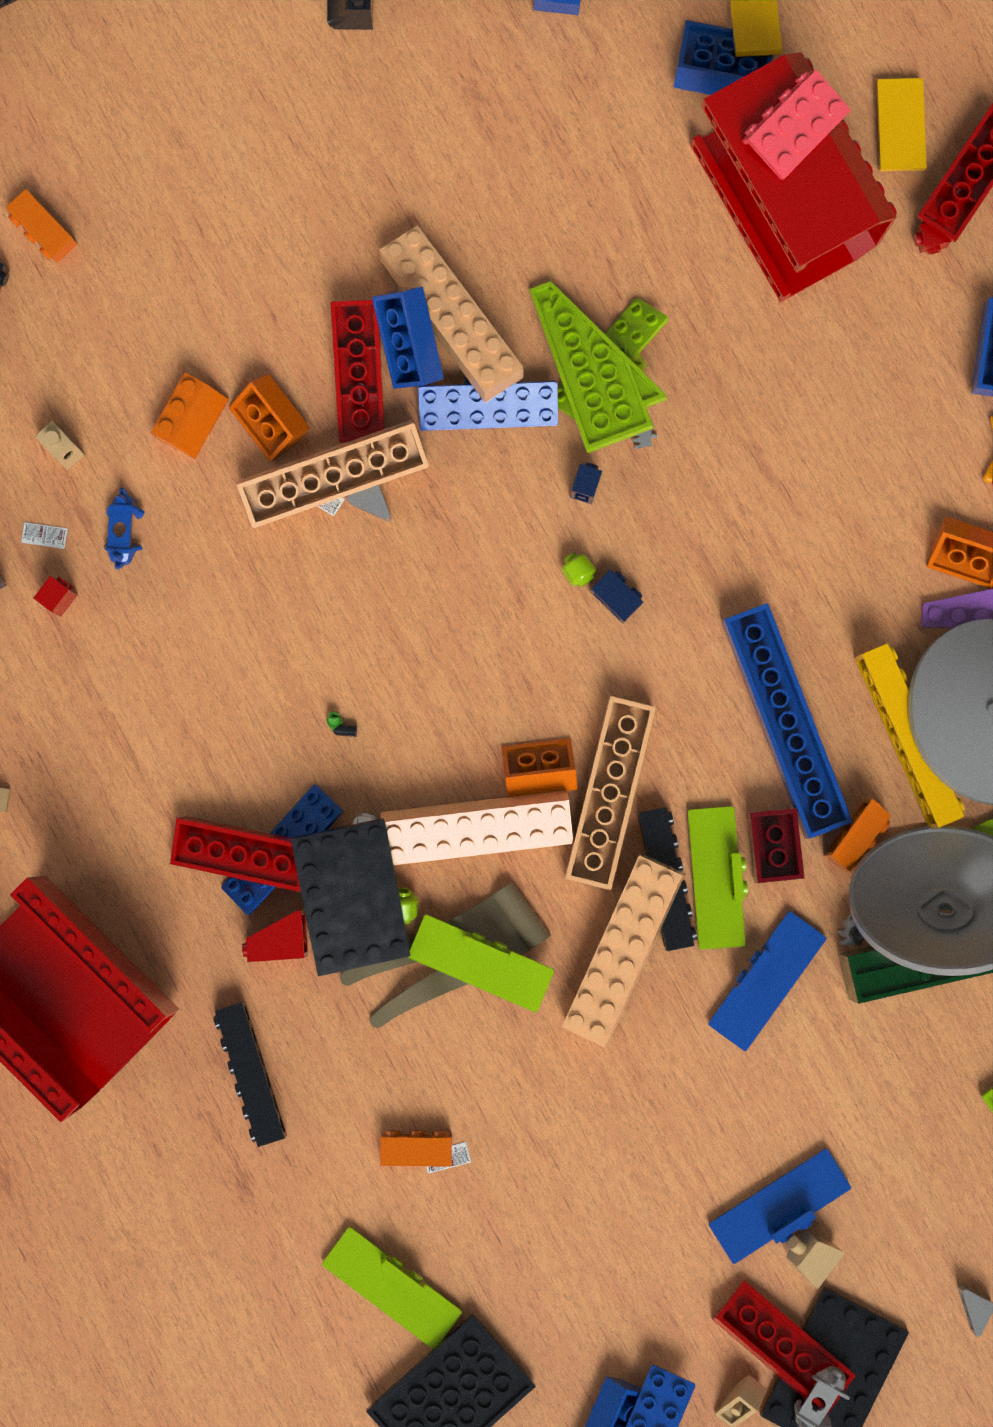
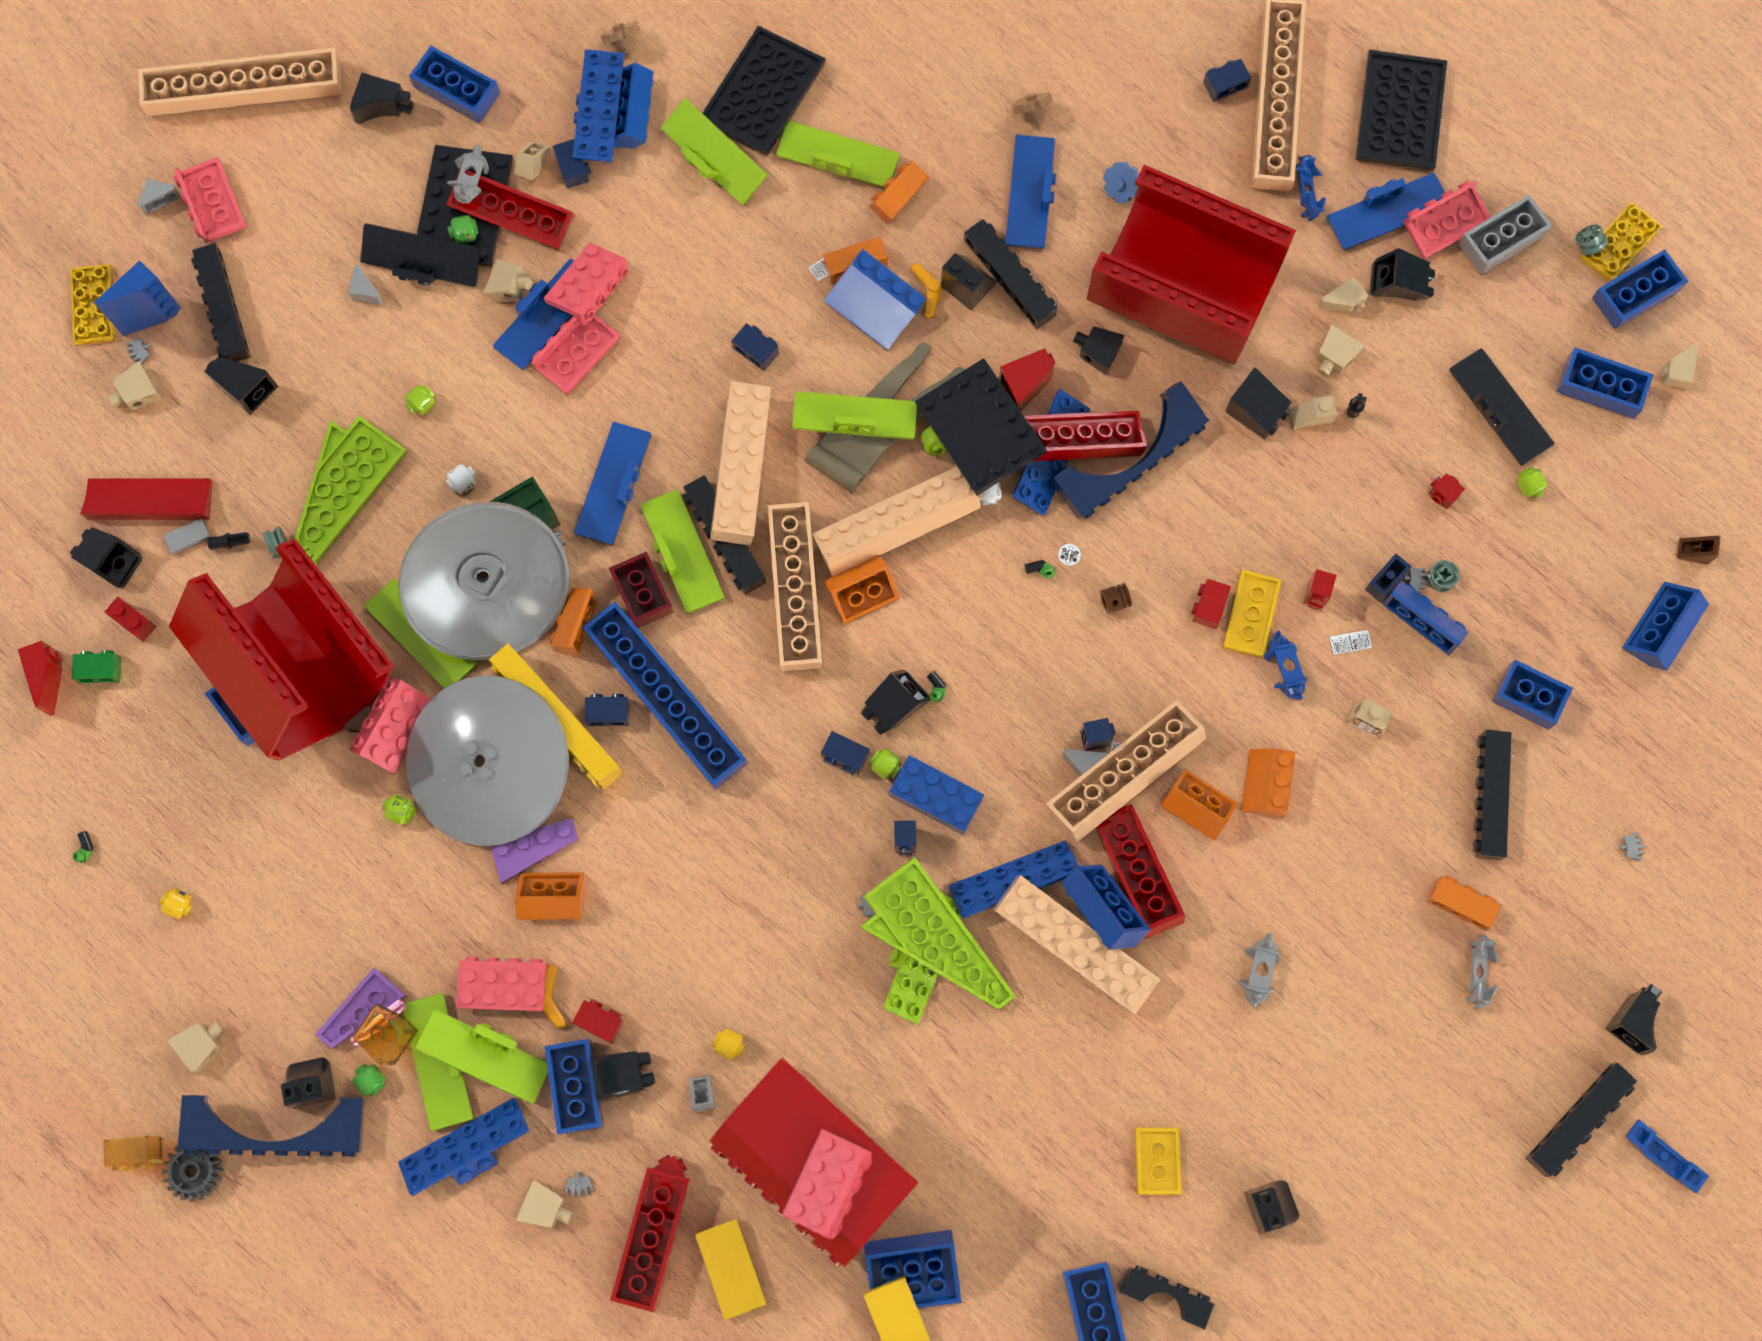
camera: 165 degrees right, 10 degrees down
(37, 823) = (1259, 405): none -> black slope
(62, 136) = (1480, 954): none -> light grey piece
(85, 1137) = (1121, 181): none -> medium blue plant
(130, 835) = (1179, 420): none -> dark blue arch
(135, 600) = (1252, 614): none -> yellow tile
(150, 1267) = (1033, 106): none -> medium nougat plant
(175, 624) = (1211, 603): none -> red brick
(184, 952) = (1099, 347): none -> black torso
(191, 1166) = (1030, 191): none -> blue bracket
(260, 245) = (1258, 987): none -> light grey piece
(273, 663) = (1115, 598): none -> reddish brown piece
(300, 1081) = (966, 280): none -> black slope
(303, 732) = (1069, 554): none -> white sticker
(339, 1216) = (898, 191): none -> orange brick
(341, 1088) = (932, 287): none -> light orange piece
(348, 522) = (1097, 734): none -> dark blue brick
(413, 1091) = (874, 299): none -> slope
(446, 85) = (1158, 1161): none -> yellow tile
(494, 633) = (939, 687): none -> arm
(533, 1338) = (713, 152): none -> lime bracket
(537, 519) = (936, 795): none -> blue brick
(544, 632) = (895, 701): none -> black hips
(561, 1085) = (755, 346): none -> dark blue brick
(699, 1370) = (572, 170): none -> dark blue brick
(724, 1224) = (588, 282): none -> coral bracket
(761, 1150) = (574, 352): none -> coral bracket
(834, 339) = (728, 1044): none -> yellow head
(845, 1338) = (463, 229): none -> bright green head
(851, 727) = (607, 710): none -> dark blue brick
(877, 299) = (701, 1093): none -> light grey slope
(903, 1322) = (419, 256): none -> black bracket
(931, 1041) = (461, 479): none -> white head
(950, 1149) = (420, 400): none -> lime head
(953, 346) = (620, 1074): none -> black hips
(958, 407) = (598, 1021): none -> red brick

